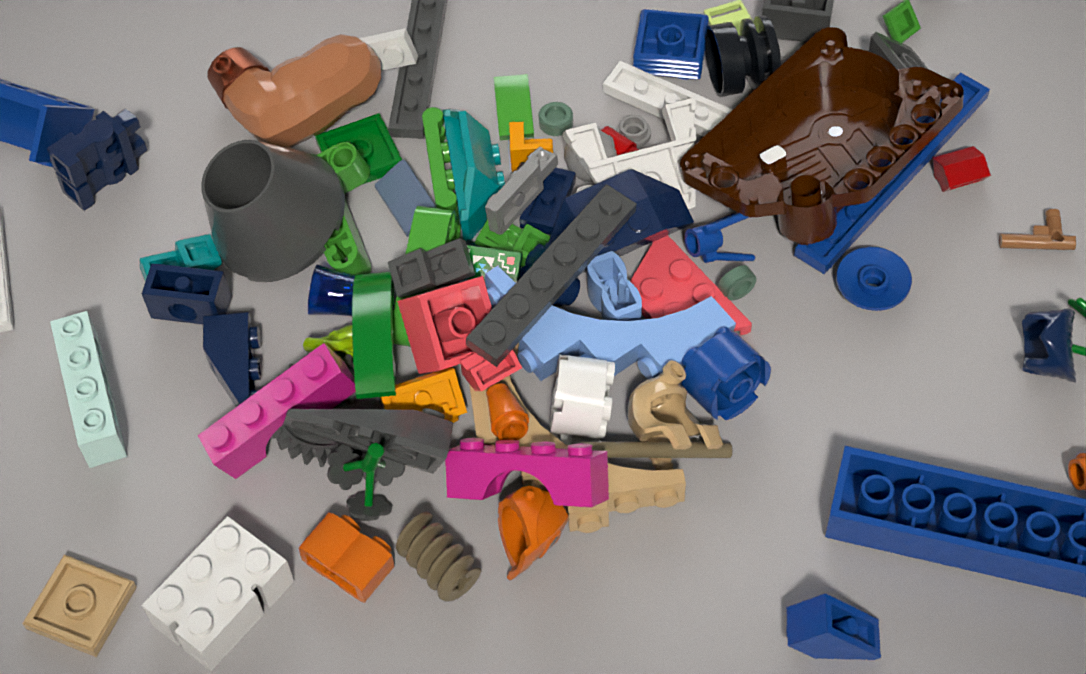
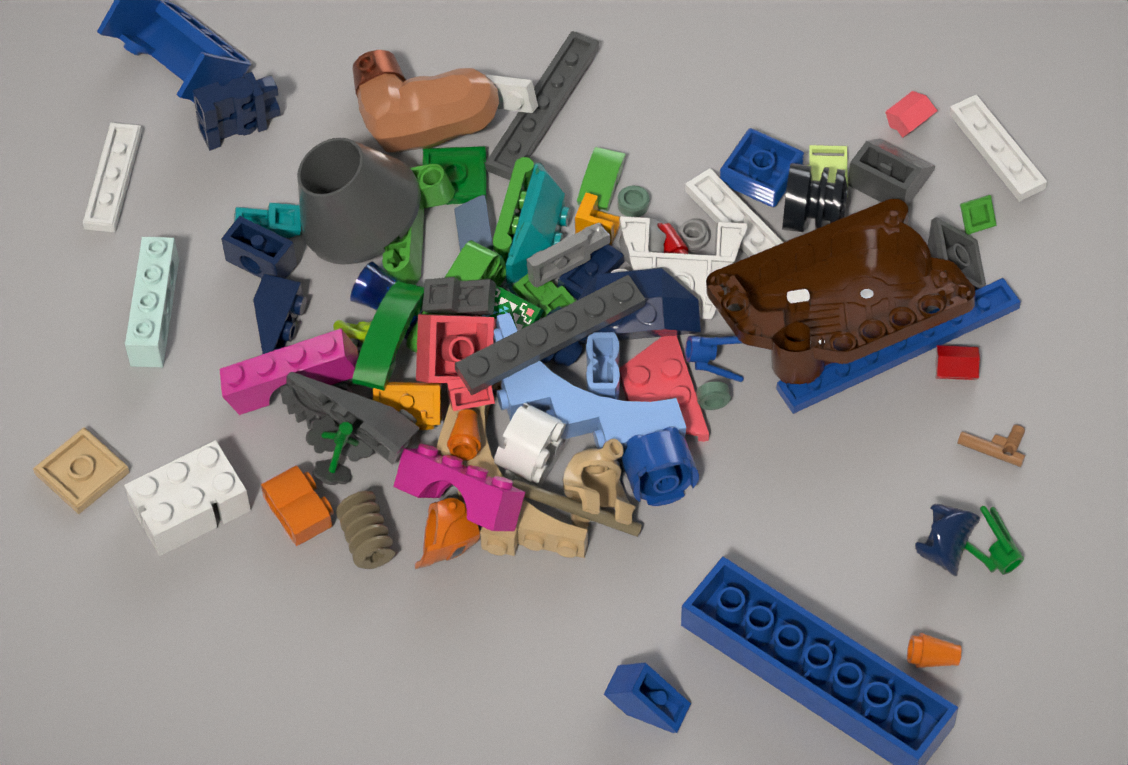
camera: 20 degrees right, 0 degrees up
(875, 267) = (831, 420): blue dish -> none

